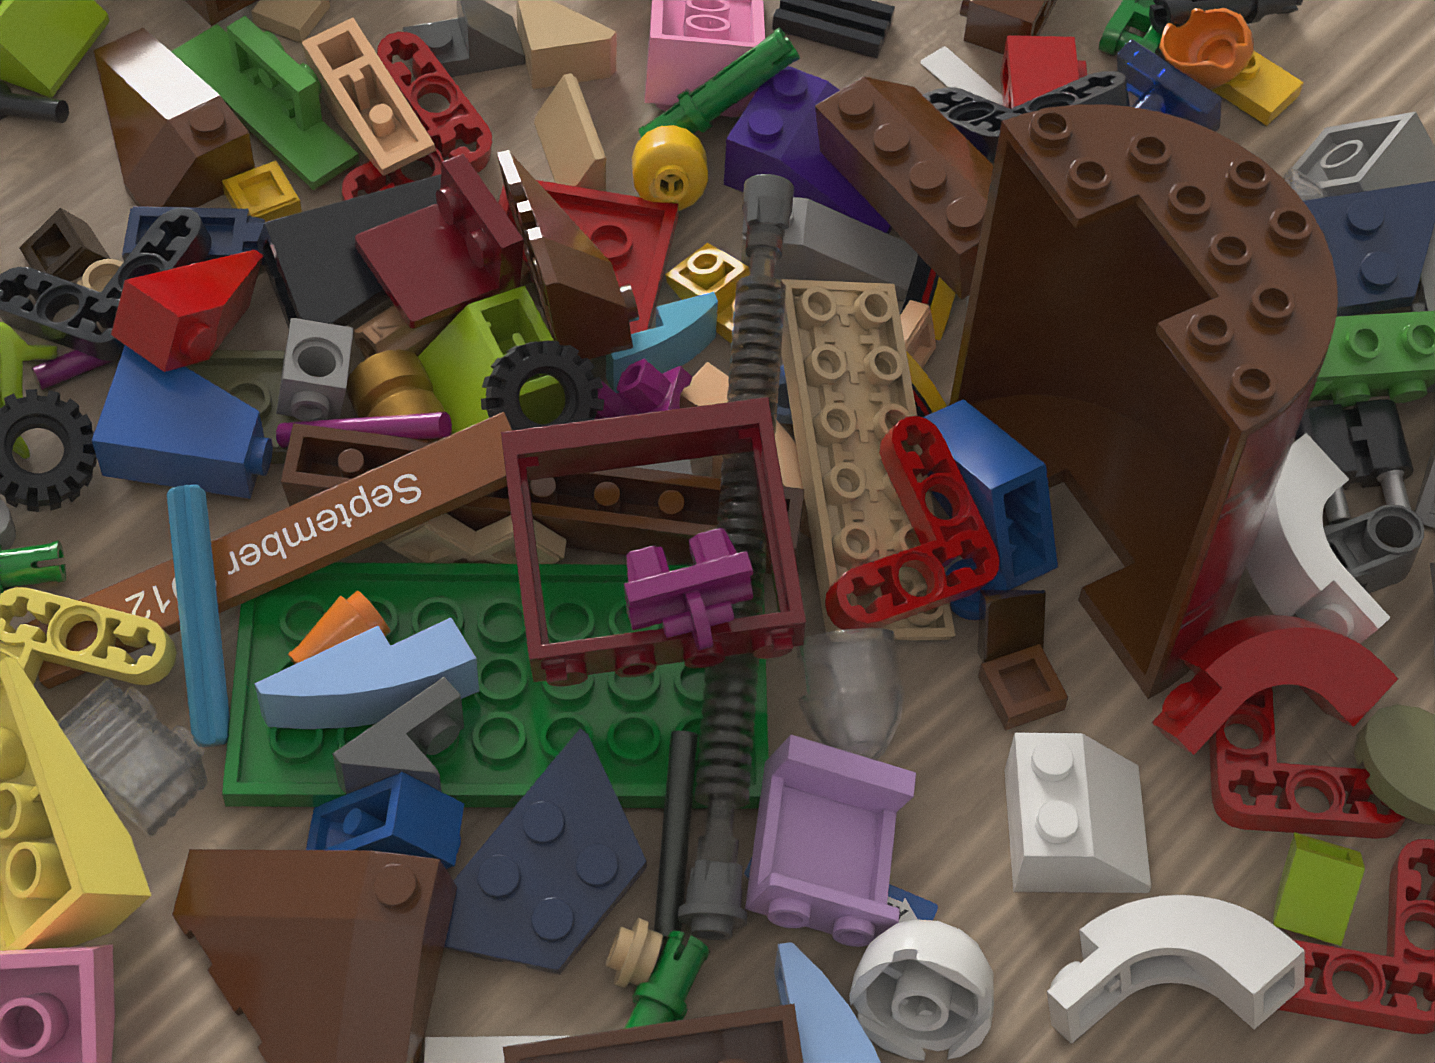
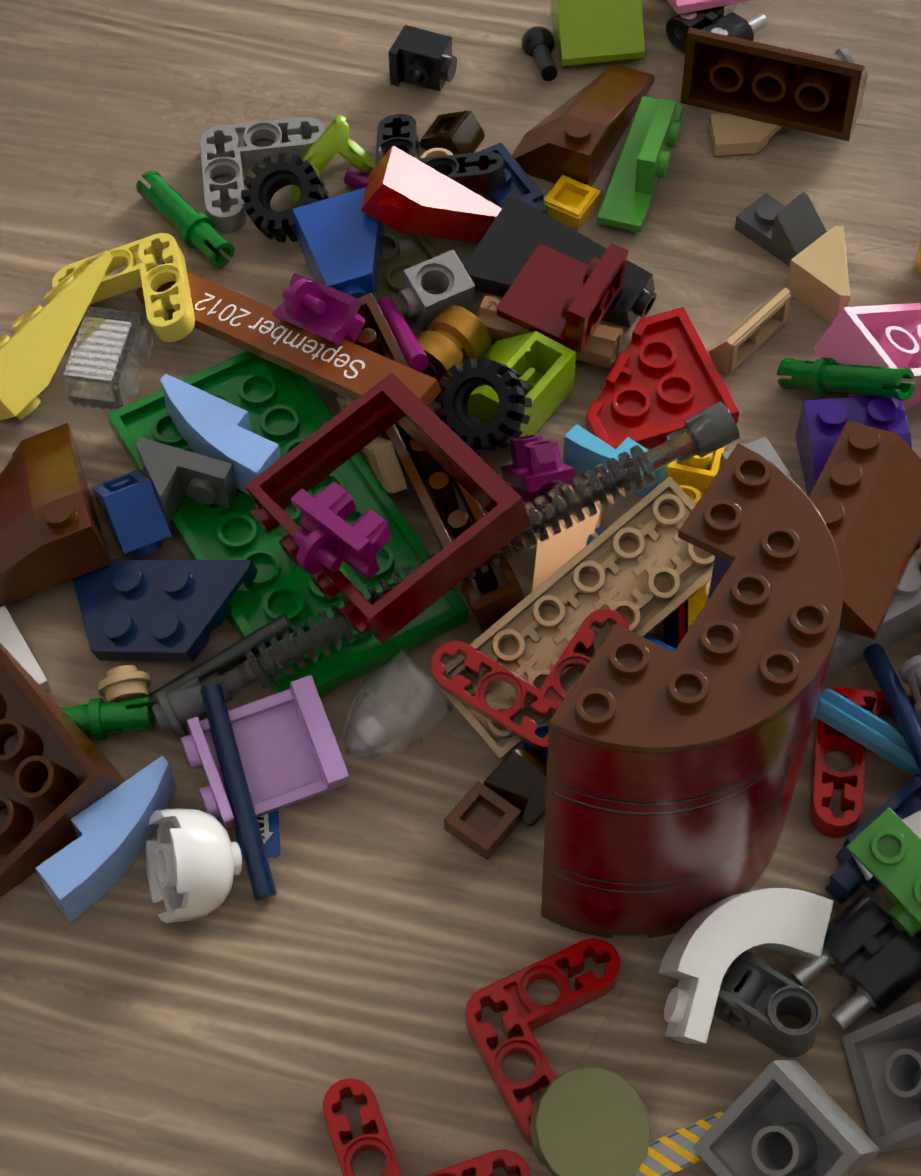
camera: 65 degrees right, 0 degrees up
(198, 615) = (210, 324): dark azure axle -> none
(294, 479) = (320, 310): none -> magenta hips
(341, 622) = (260, 403): orange cone -> none
(366, 98) = (675, 198): light nougat slope -> none
(444, 128) = (695, 255): red beam -> none
(568, 270) = (596, 358): reddish brown wedge -> none
(670, 166) = (763, 388): yellow head -> none
(777, 860) = (238, 792): none -> dark blue bar
(1074, 816) = (392, 903): white slope -> none
(1180, 942) = (296, 984): white arch -> none
(1265, 653) = (608, 969): red arch -> none
(1318, 889) = (436, 1101): lime brick -> none

